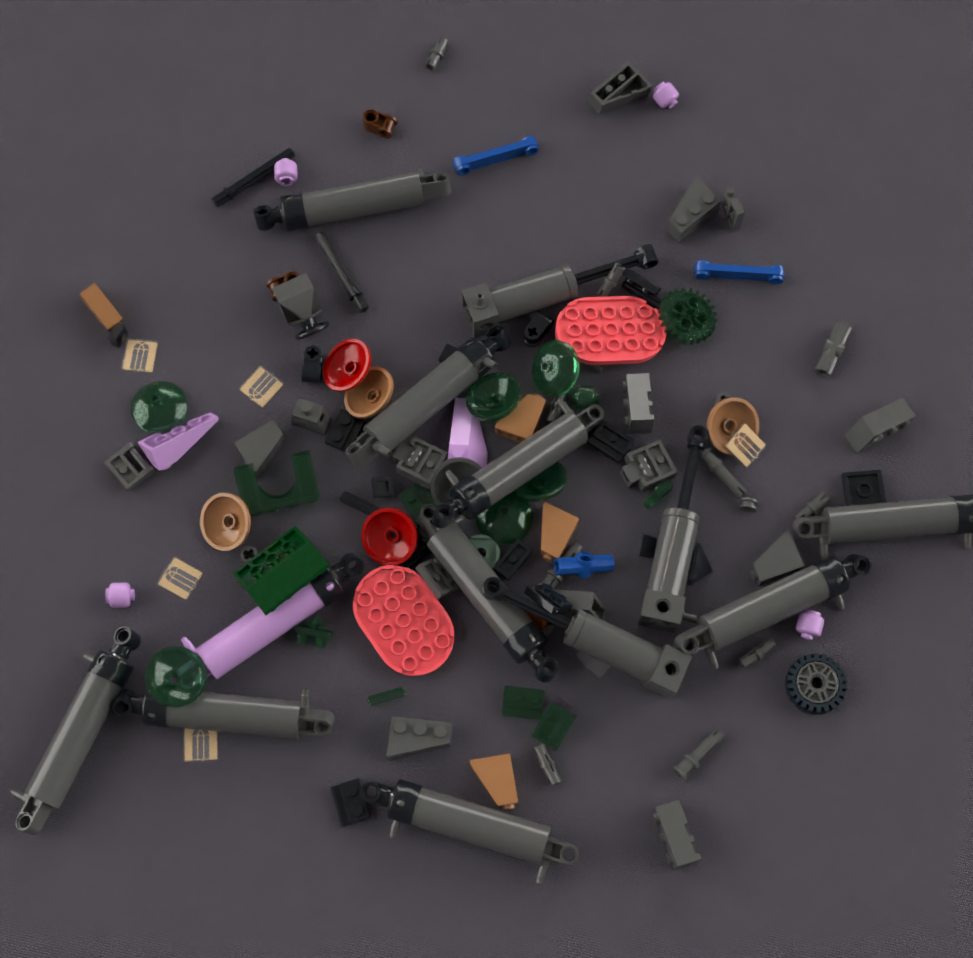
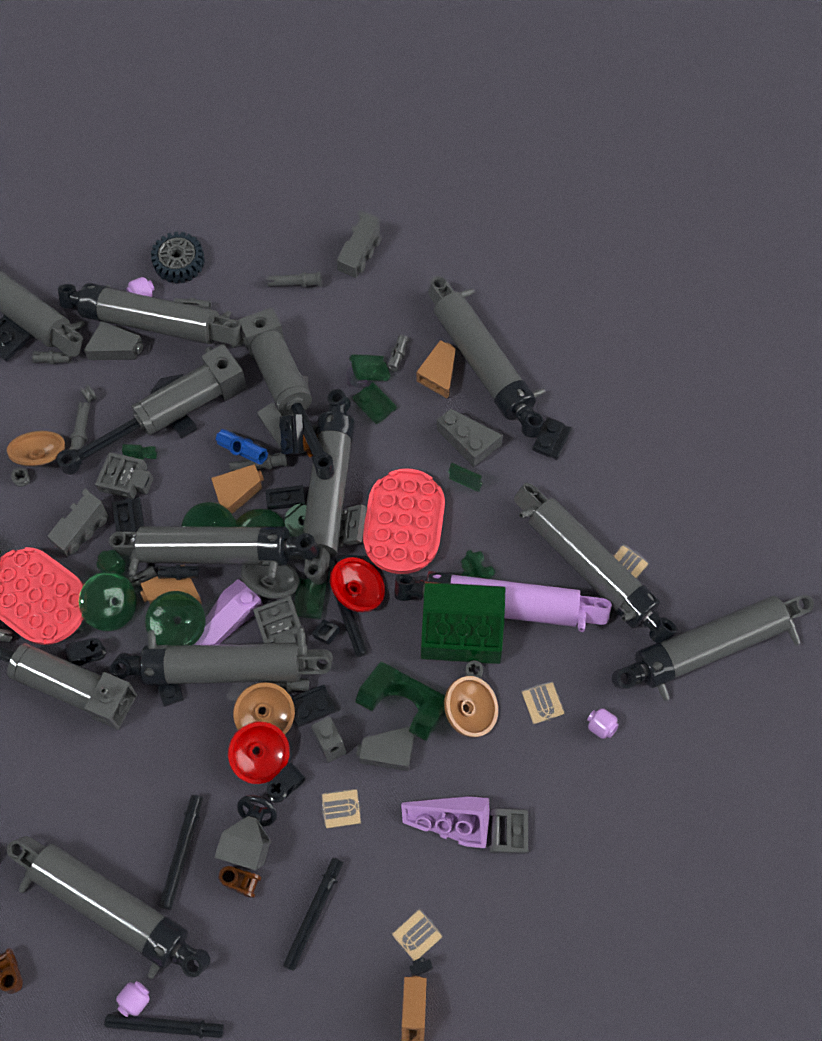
camera: 140 degrees left, 5 degrees down
(164, 413) = (444, 882): clear green dish -> none
(182, 665) = (606, 593): clear green dish -> none
(219, 311) = (313, 914): none -> black axle
(525, 427) = (178, 572): none -> black pin
(745, 445) = (43, 432): piece -> none

